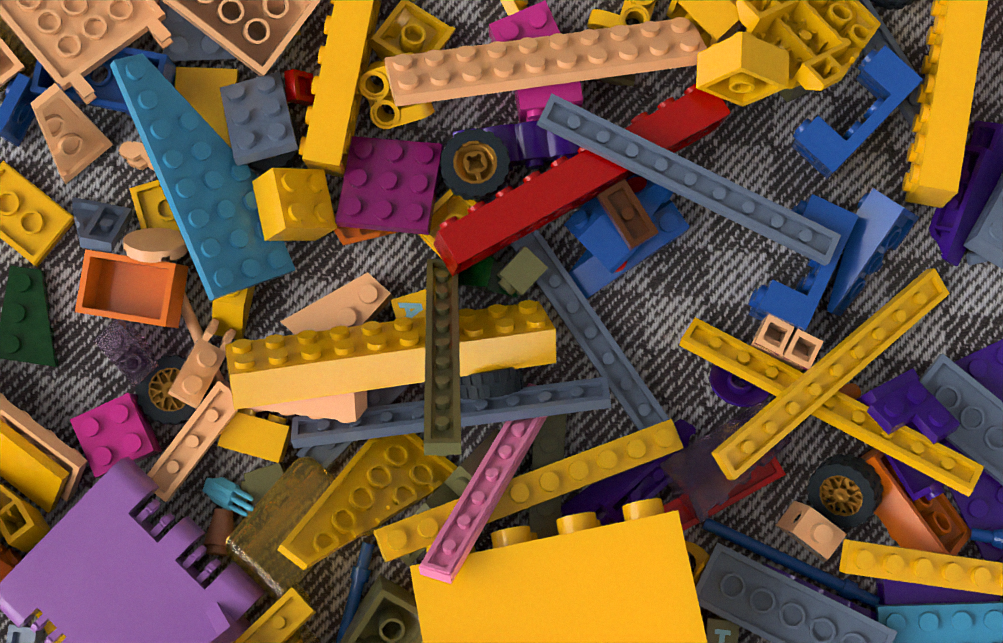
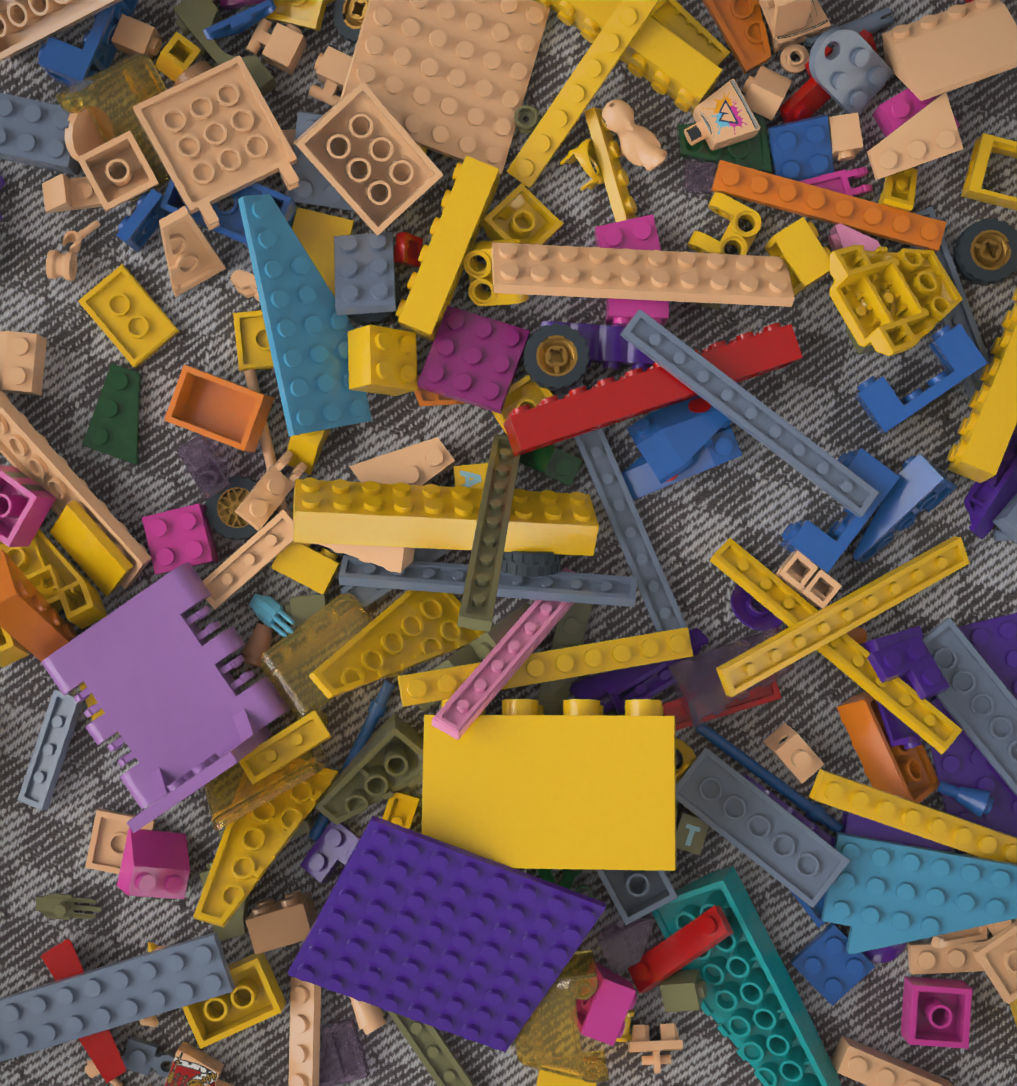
camera: 15 degrees right, 5 degrees up
(99, 224) = (200, 341): sand blue wing -> none
(153, 244) = (247, 372): light nougat tile -> none
(520, 272) = (577, 465): olive brick -> none
(627, 214) = (686, 433): reddish brown plate -> none
(742, 69) = (821, 320): yellow brick -> none
(845, 490) = (828, 737): black wheel -> none

